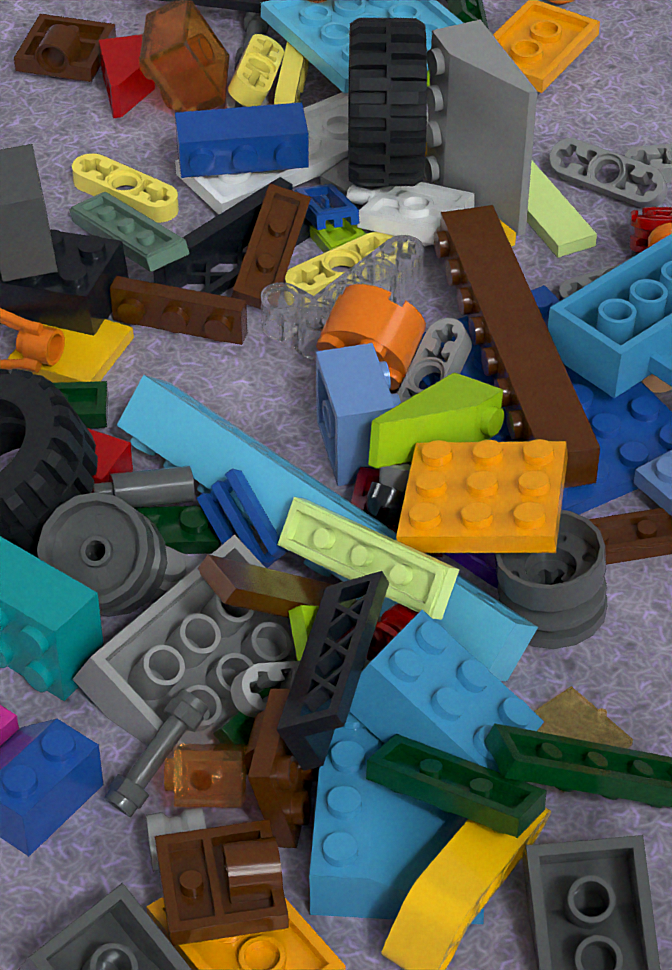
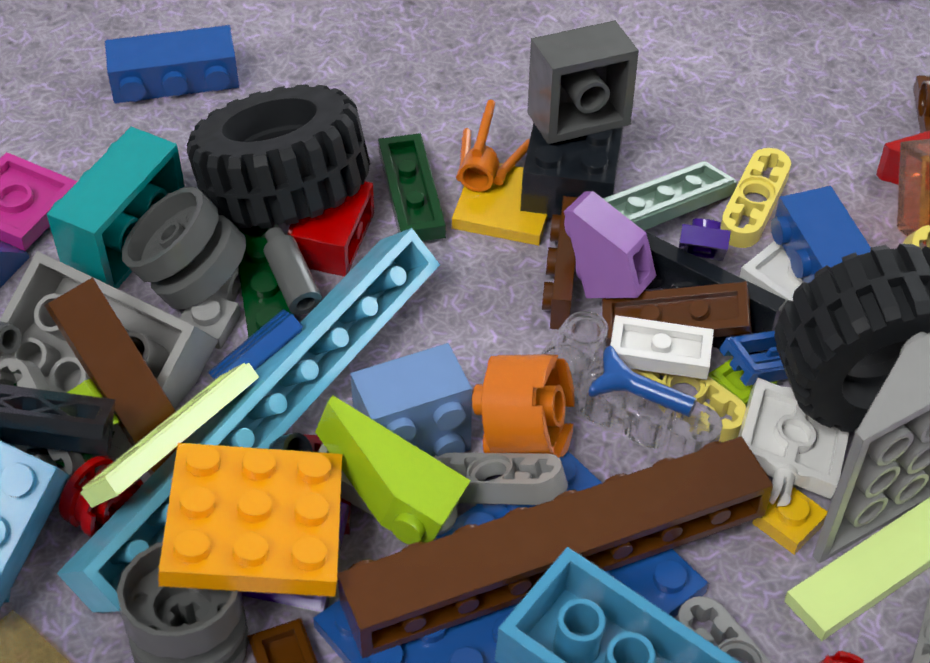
camera: 80 degrees right, 5 degrees up
(202, 204) = (705, 239): none -> dark purple plate
(206, 258) = (608, 249): none -> medium lavender slope
(313, 256) = (663, 346): none -> white plate
(361, 269) = (620, 377): none -> blue piece

